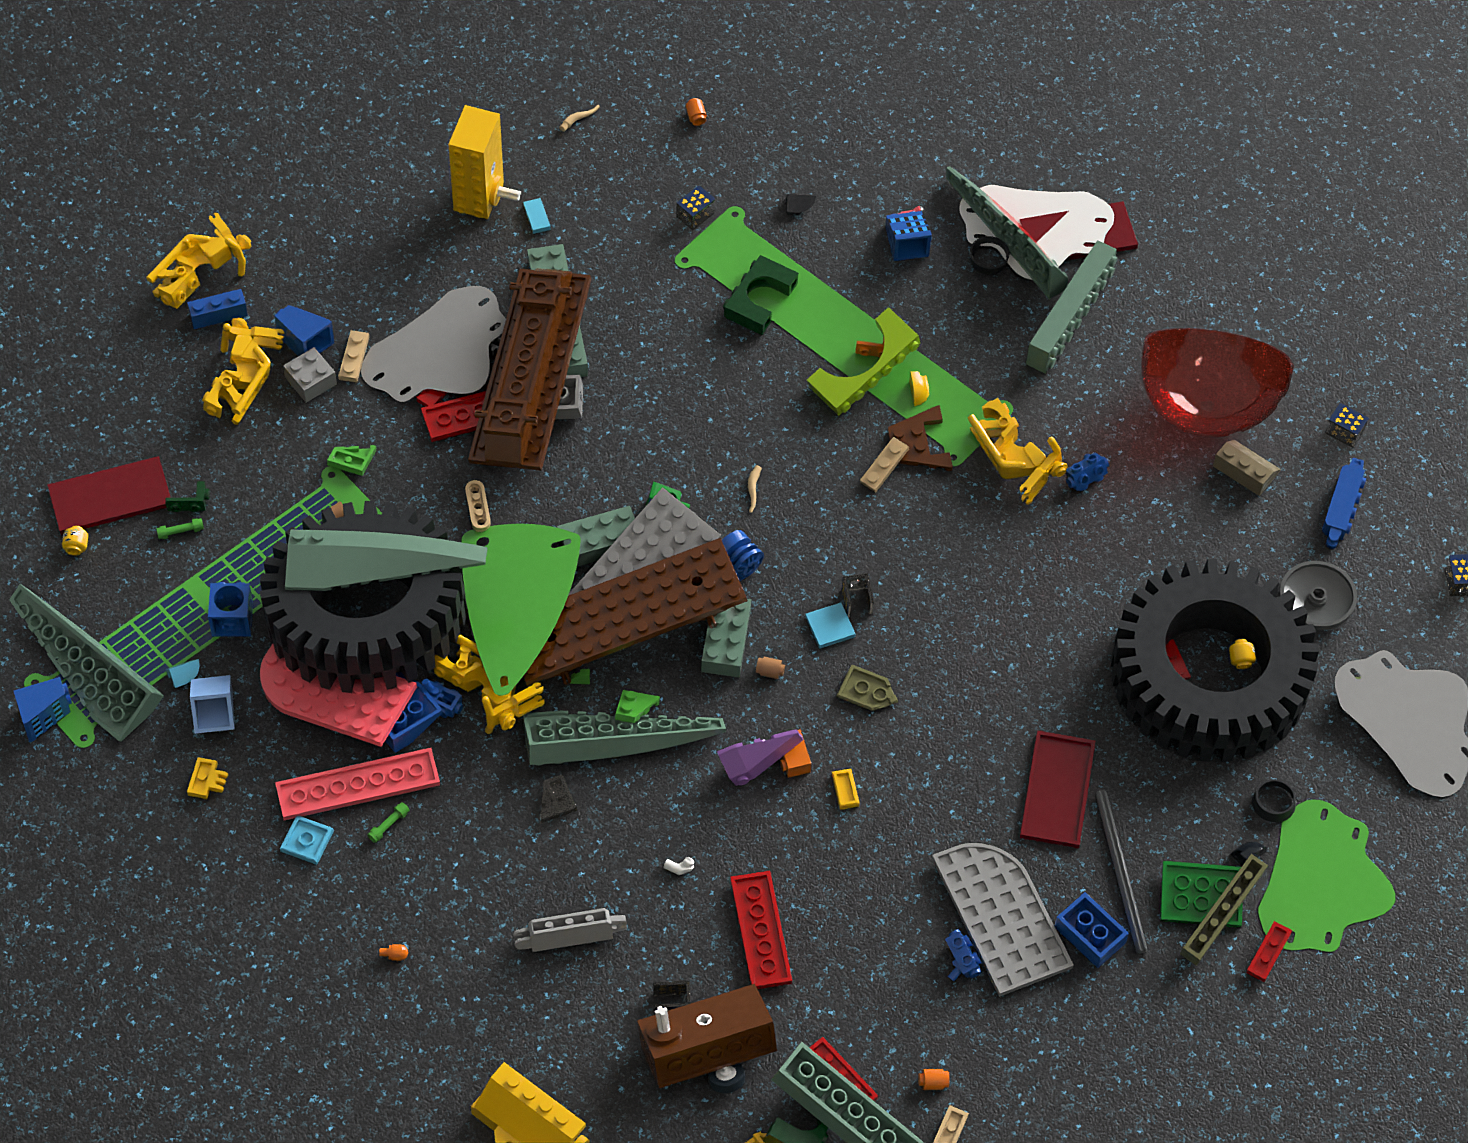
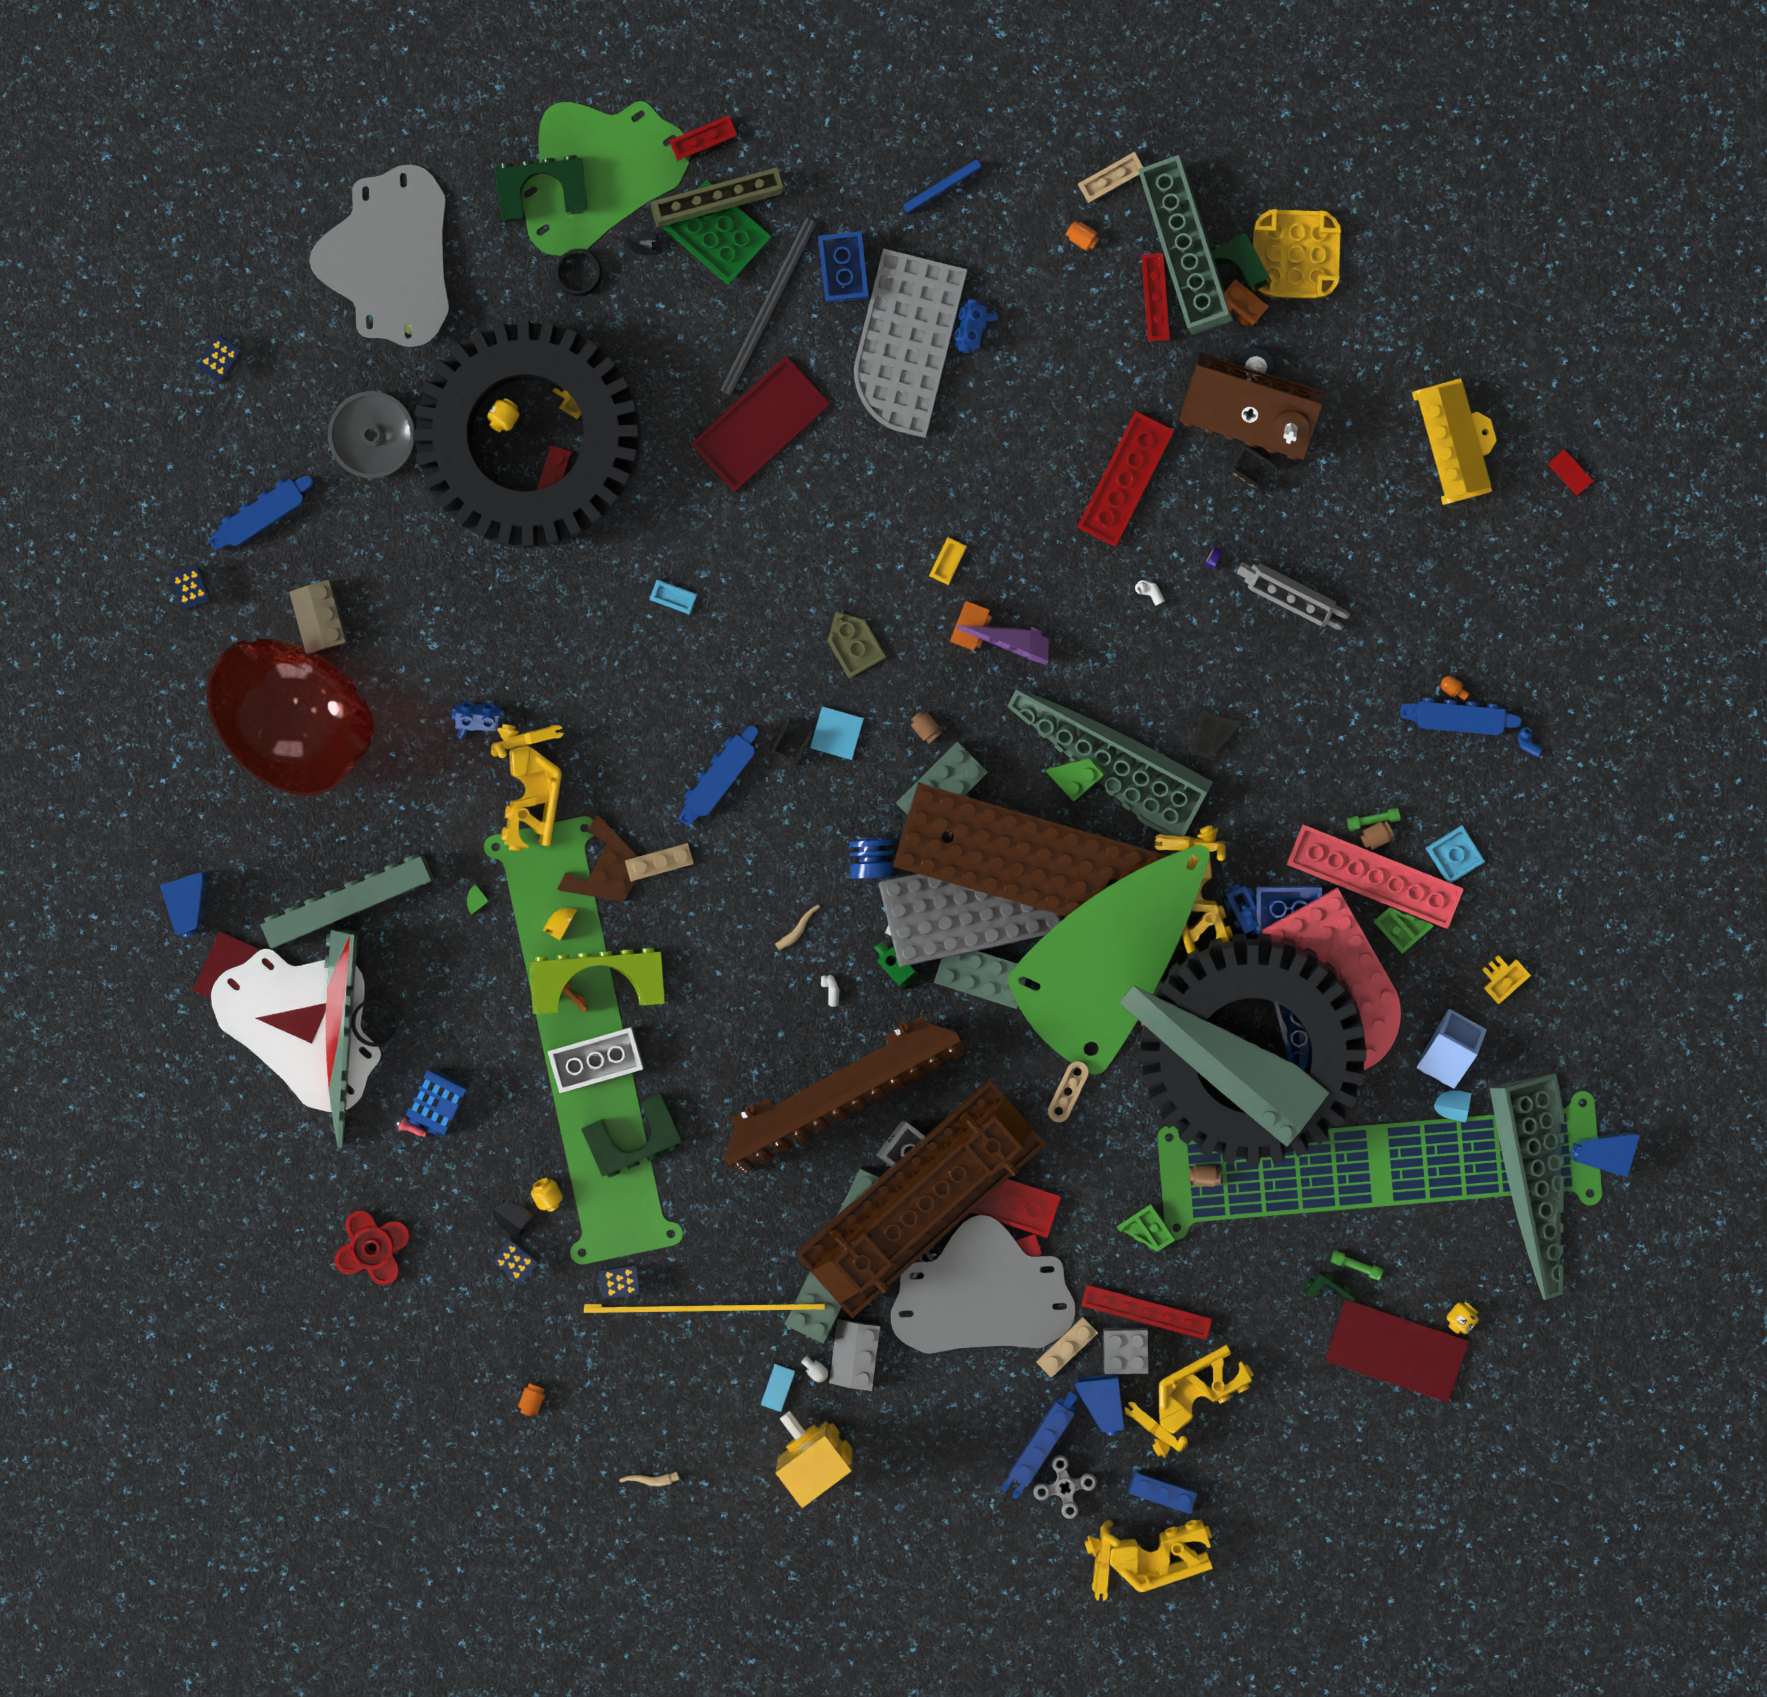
camera: 140 degrees left, 30 degrees up
(230, 622) = (1392, 1134): blue brick -> none
(289, 273) = (1074, 1485): none -> light grey gear
(308, 951) = (1526, 742): none -> blue arm
(311, 760) = (1401, 928): none -> bright green wing
(313, 408) = (1146, 1312): none -> red plate
(327, 282) = (1041, 1443): none -> blue hinge
(373, 933) = (1459, 717): none -> blue hinge
(377, 811) = (1377, 835): none -> medium nougat brick
(496, 262) = (854, 1354): none -> light grey slope
(519, 239) = (815, 1369): none -> white cylinder
(614, 438) = (774, 1128): none -> reddish brown piece
(619, 227) = (597, 1308): none -> yellow piece
(650, 918) = (1213, 557): none -> dark purple tile
(703, 469) = (833, 994): none -> white arm
(766, 1111) = (1244, 304): none -> orange bracket
(775, 177) = (515, 1261): none -> dark blue piece
(787, 227) = (546, 1194): none -> yellow head
(823, 319) = (595, 1059): none -> white brick
(875, 132) = (357, 1255): none -> red plant
(888, 544) = (719, 777): none -> blue hinge
(988, 368) = (475, 899): none -> bright green tile
(1019, 636) = (673, 597): none -> medium azure tile
(1067, 1041) = (942, 186): none -> blue tile
(1175, 240) = (186, 902): none -> blue slope
(1342, 858) = (512, 179): none -> dark green arch

